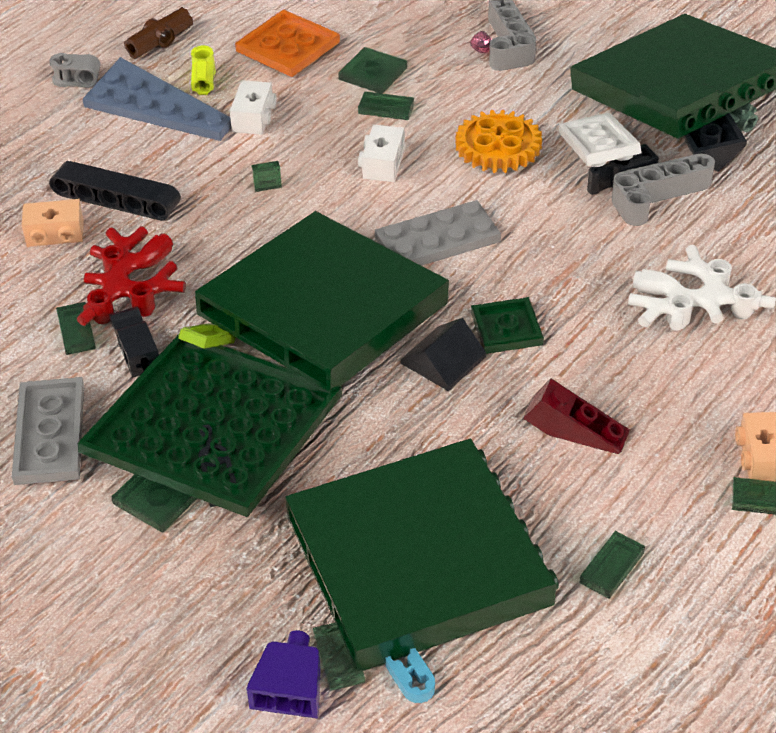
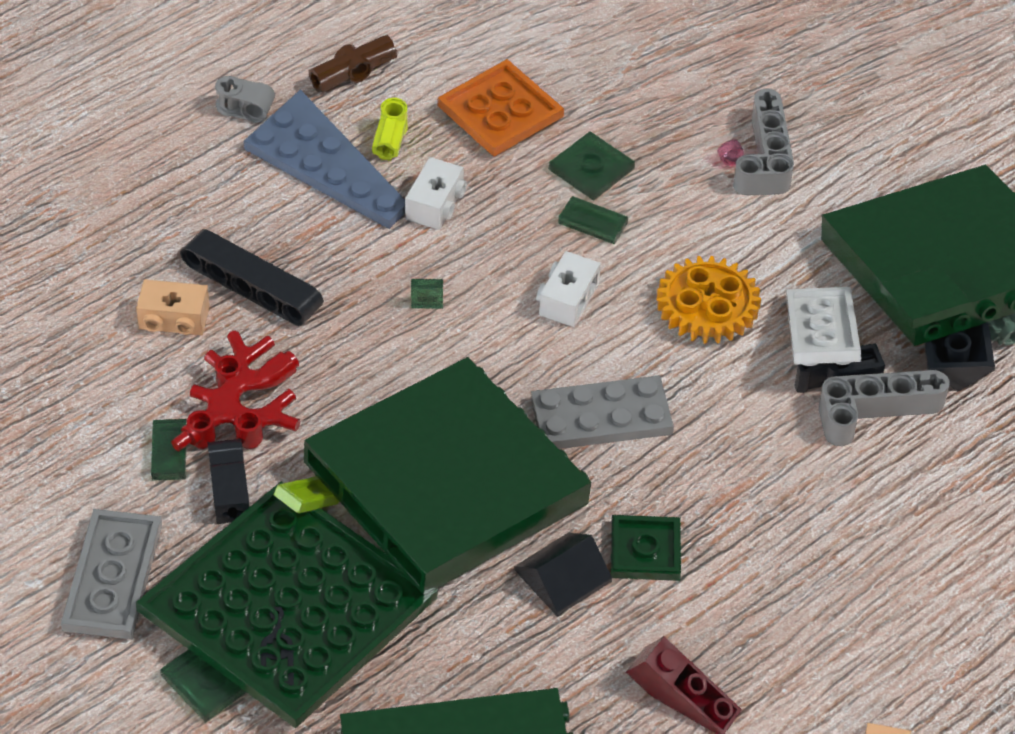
camera: 10 degrees right, 5 degrees up
(679, 301) = (849, 559): white plant -> none

